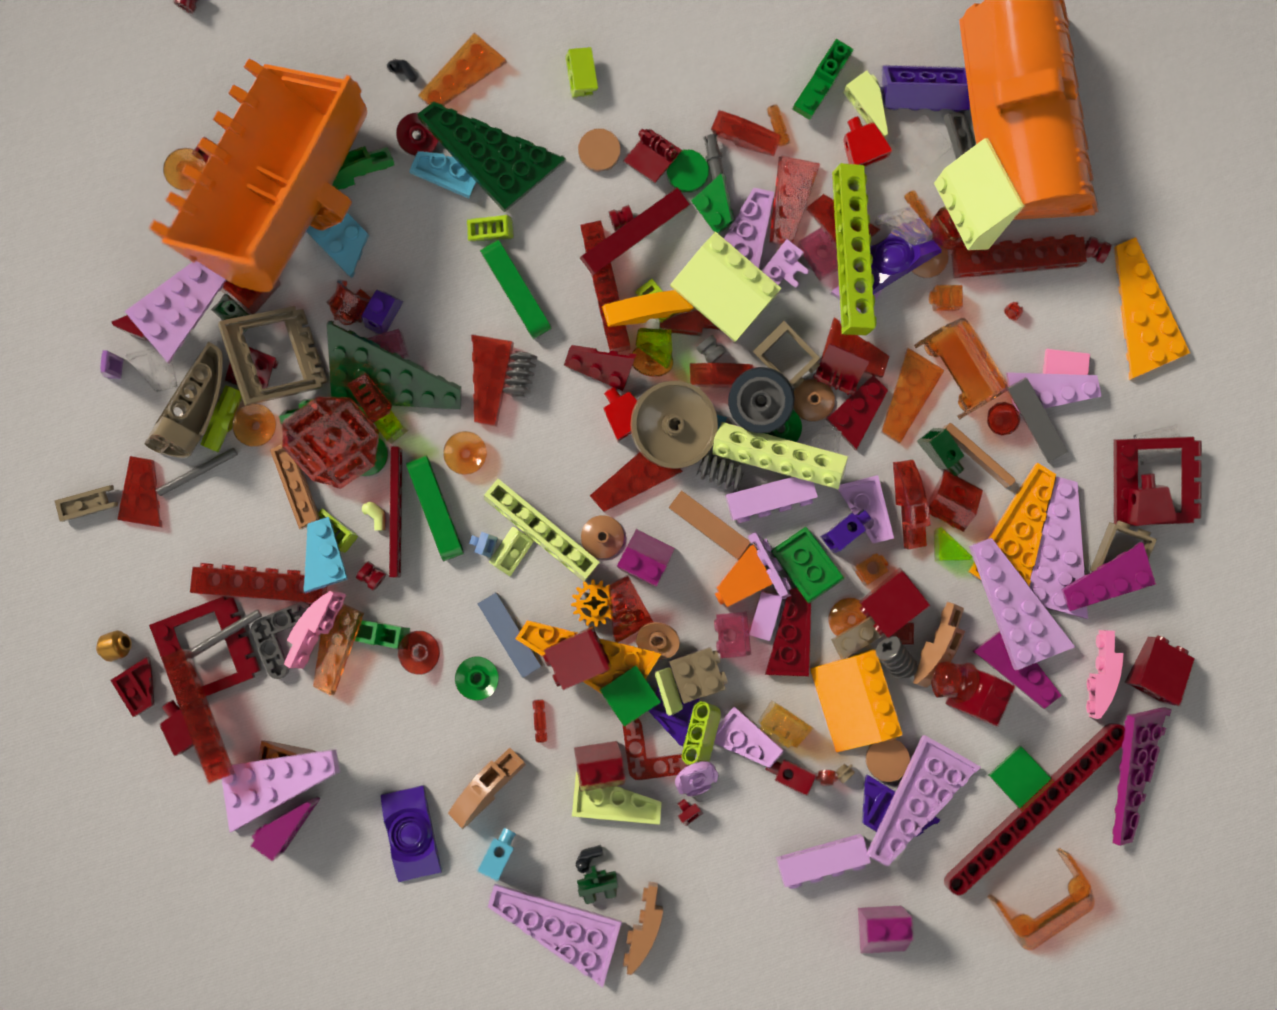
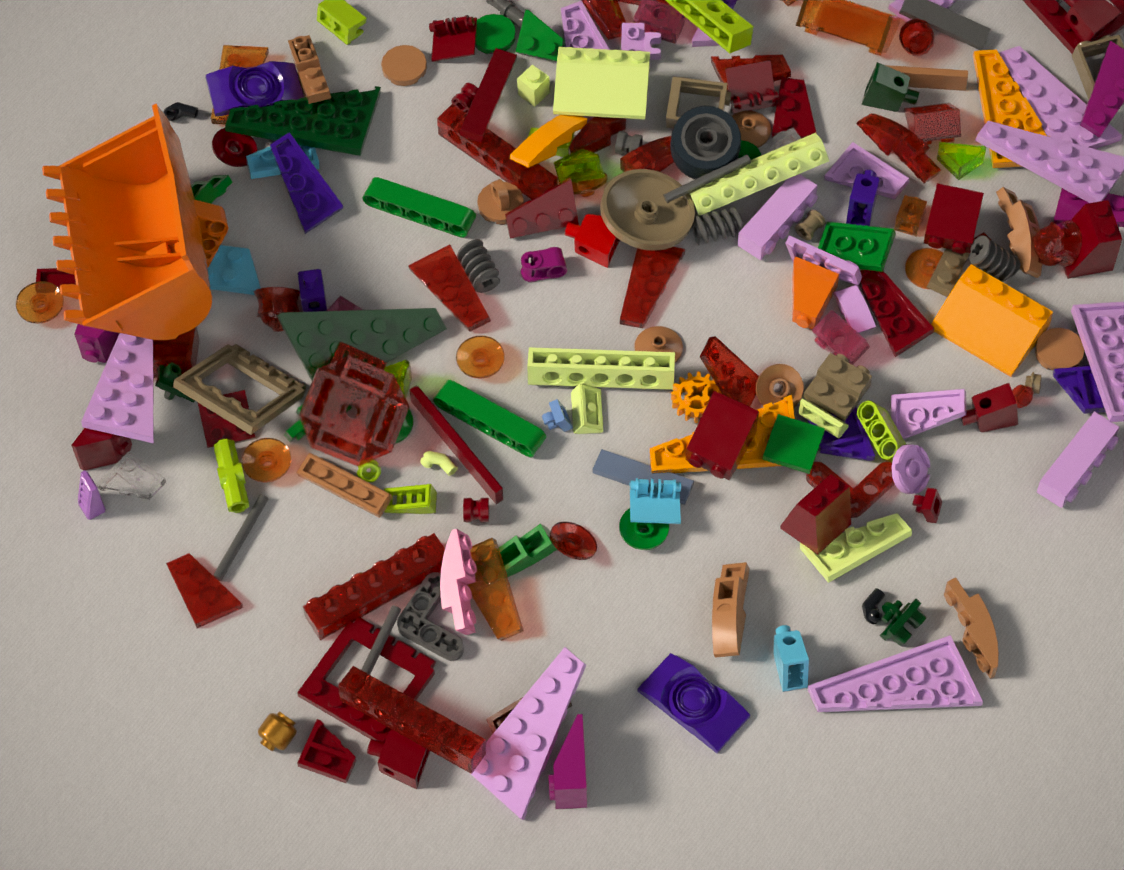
camera: 30 degrees left, 25 degrees down
(84, 504) = (153, 631): dark tan hinge -> none
(180, 434) = (203, 478): dark tan panel -> none
(319, 489) = (369, 476): none -> lime plate
(323, 557) = (420, 515): medium azure wing -> none
(443, 210) = (306, 187): none -> dark purple wing
(468, 92) = (253, 86): none -> dark purple slope
(495, 668) = (655, 501): none -> medium azure hinge
(499, 235) = (358, 168): lime slope -> none
(522, 104) = (309, 69): none -> medium nougat slope
(539, 720) = (731, 526): clear red axle -> none
(573, 409) = (545, 264): none -> magenta piece
(580, 327) = (497, 200): none -> medium nougat tile
(645, 557) = (717, 322): magenta slope -> none
(679, 244) = (533, 85): none -> yellowish green brick
(709, 525) = (743, 275): medium nougat tile -> none
(735, 432) = (707, 178): none -> dark grey bar
(784, 725) = (947, 370): clear yellow slope -> none
(790, 520) = (810, 224): none -> dark tan bush
(912, 389) = (825, 73): clear orange wing -> none

